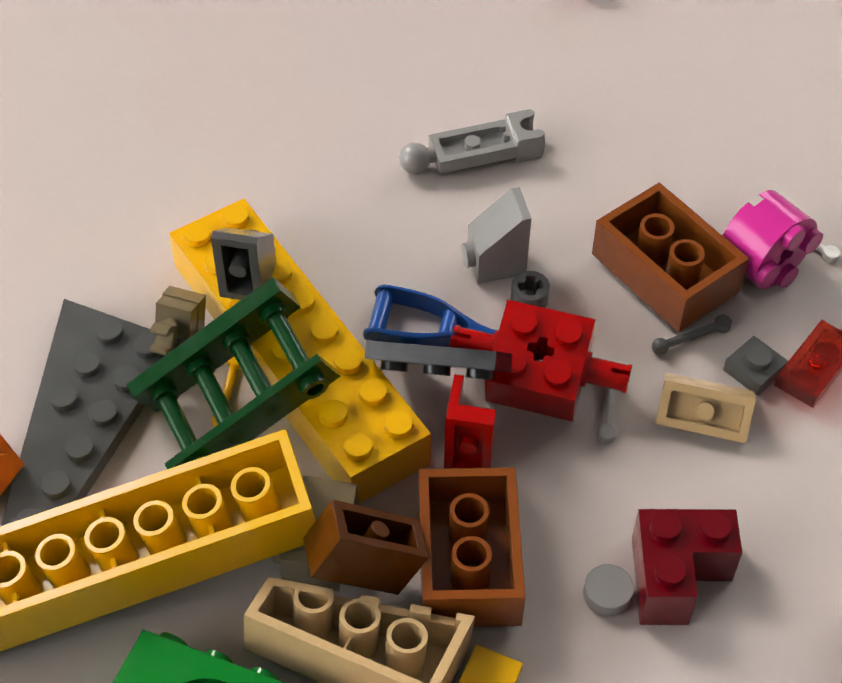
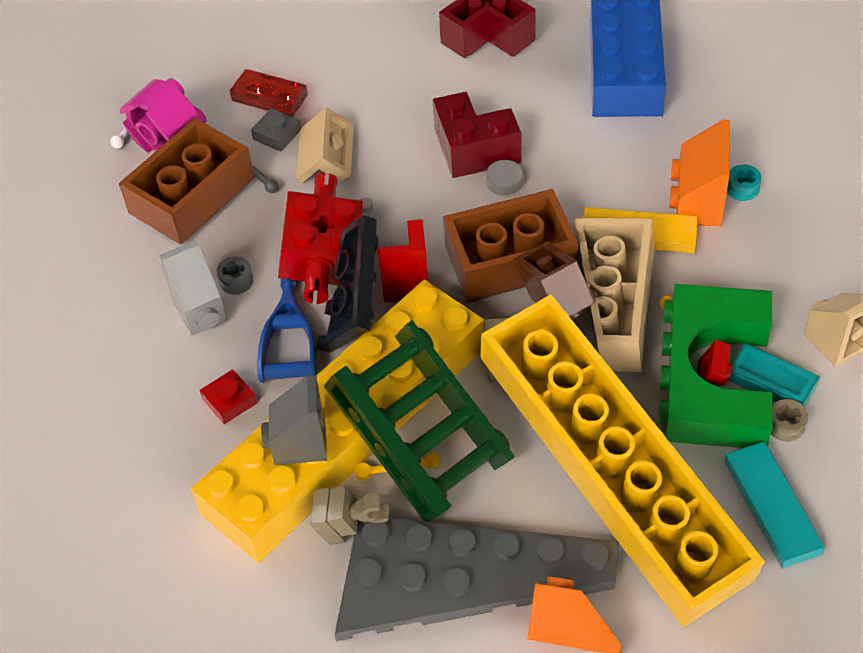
camera: 100 degrees left, 0 degrees up
(370, 265) = (228, 396): none -> red plate
(477, 145) = (65, 349): light grey plate -> none

